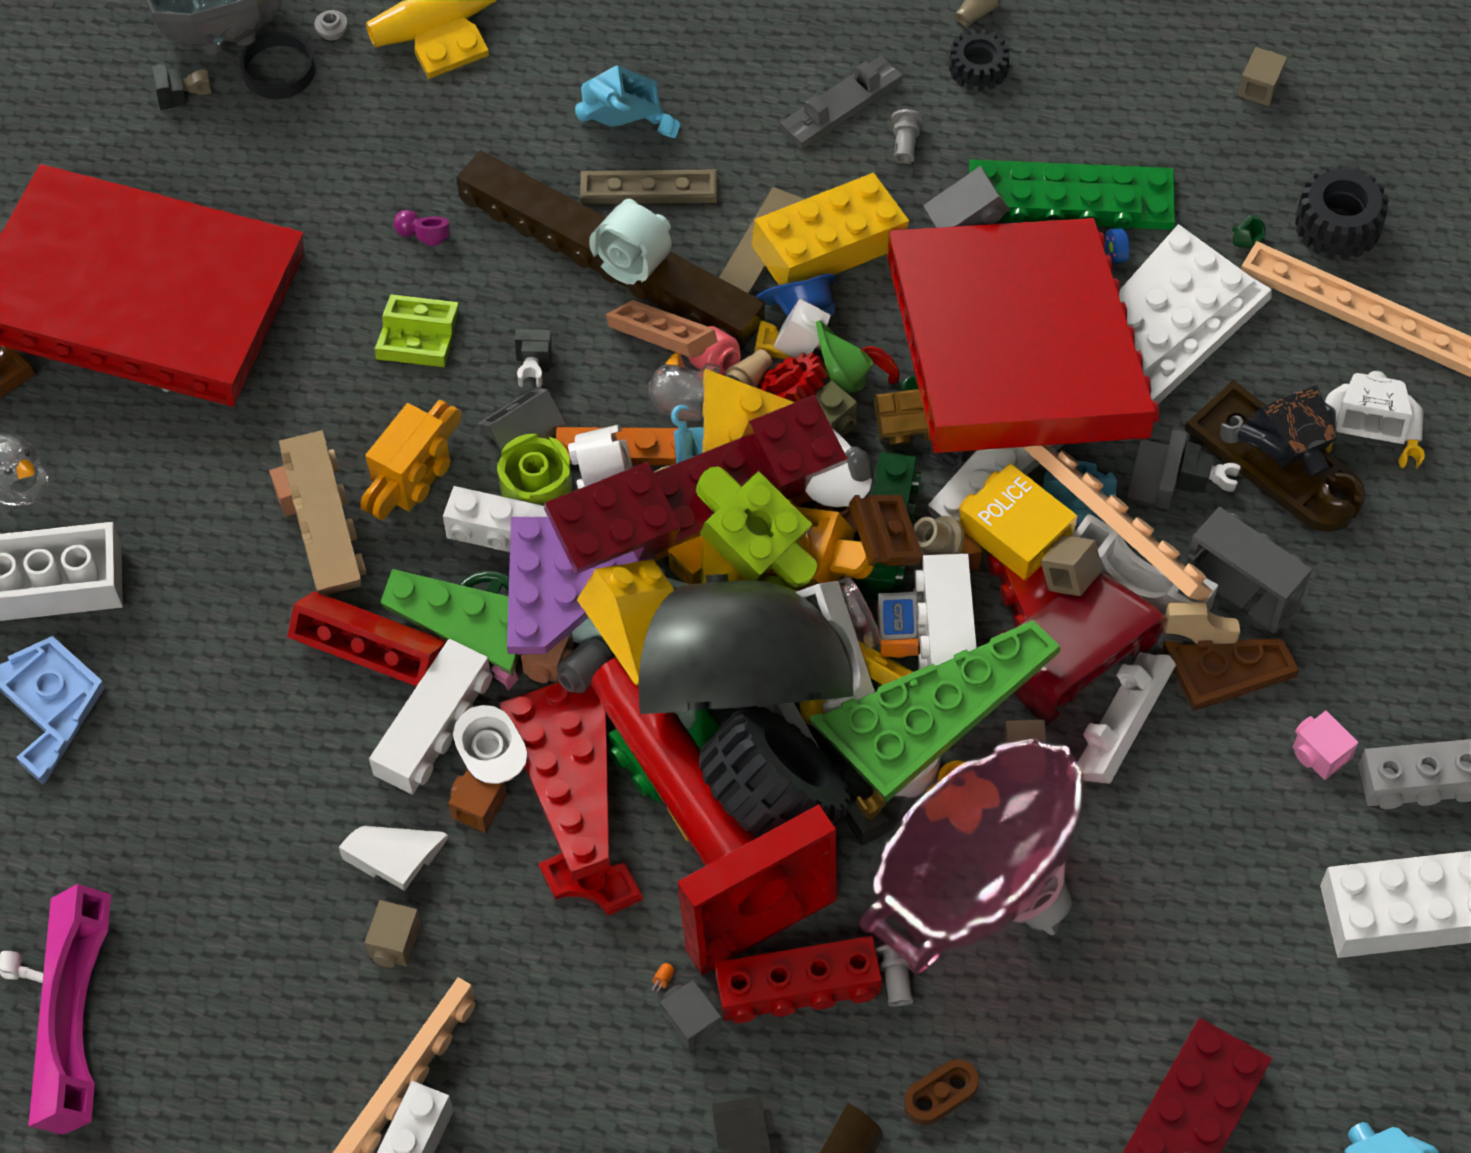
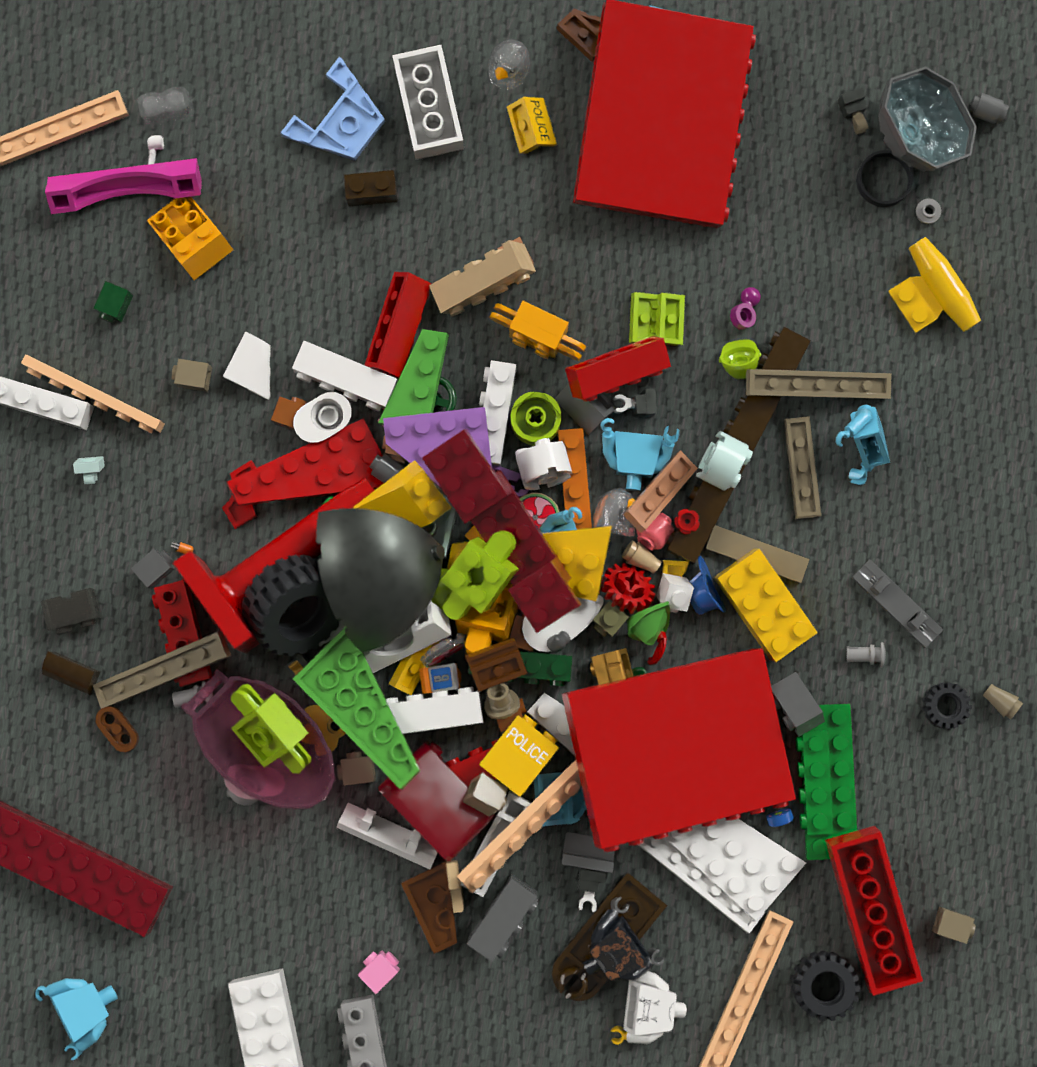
camera: 85 degrees right, 25 degrees up
(106, 457) = (531, 124): none -> yellow panel
(153, 661) = (370, 188): none -> dark brown brick
(169, 922) = (190, 235): none -> light orange slope
(254, 1044) = (113, 302): none -> dark green brick
(480, 364) = (617, 368): none -> red brick
(490, 234) = (738, 357): none -> lime hat
(516, 1101) = (89, 468): none -> light aqua tile
(540, 146) = (818, 384): none -> dark tan plate
(603, 360) = (636, 453): none -> medium azure torso
(706, 292) = (693, 518): none -> red plate
(855, 997) = (162, 670): none -> dark tan plate
(963, 855) = (270, 729): none -> lime brick
(1240, 145) = (874, 910): none -> red brick
(1249, 232) = (802, 917): dark green piece -> none

